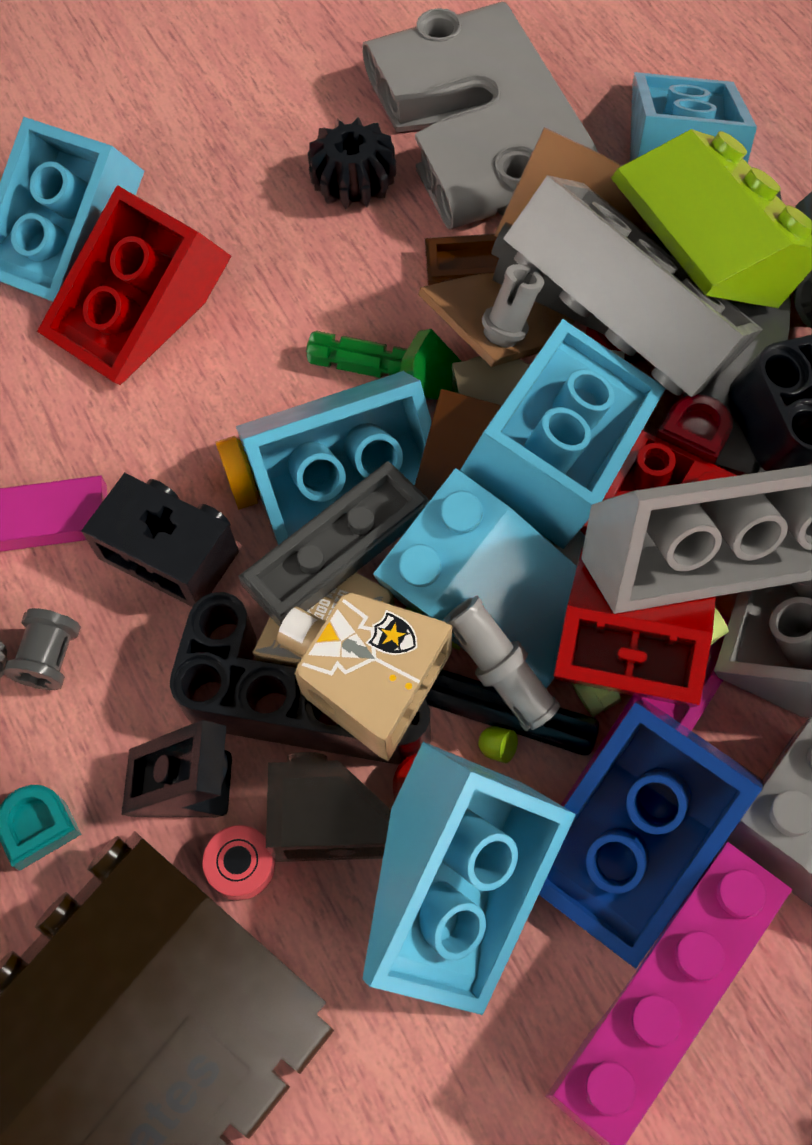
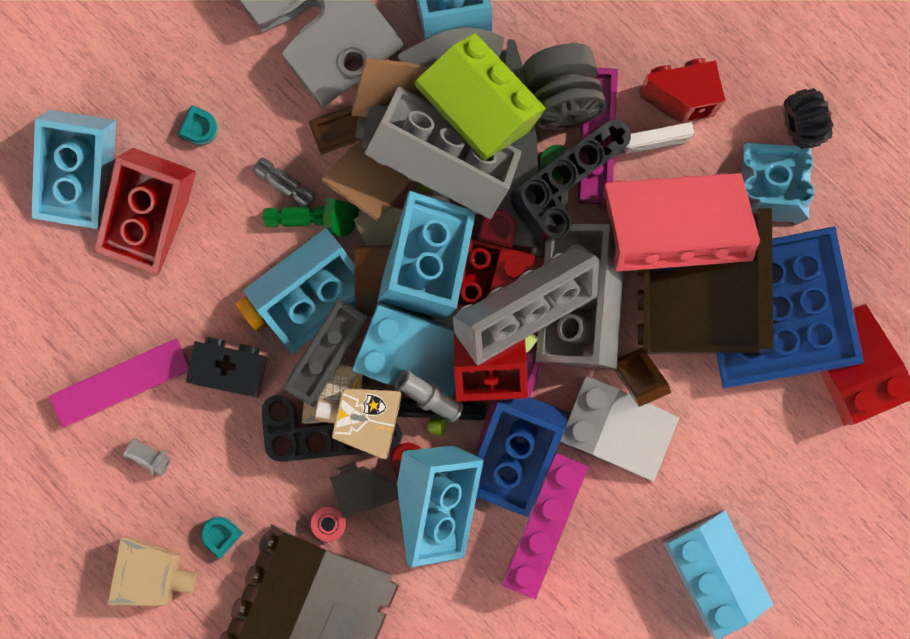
camera: 20 degrees left, 20 degrees up
(42, 649) = (187, 448): dark grey bush -> none
(180, 774) = (283, 492): black slope -> none
(259, 215) = (198, 127): none -> teal tile
(352, 163) = (236, 86): black gear -> none
(358, 307) = (283, 182): none -> dark grey axle
(506, 320) = (378, 189): light grey pin -> none

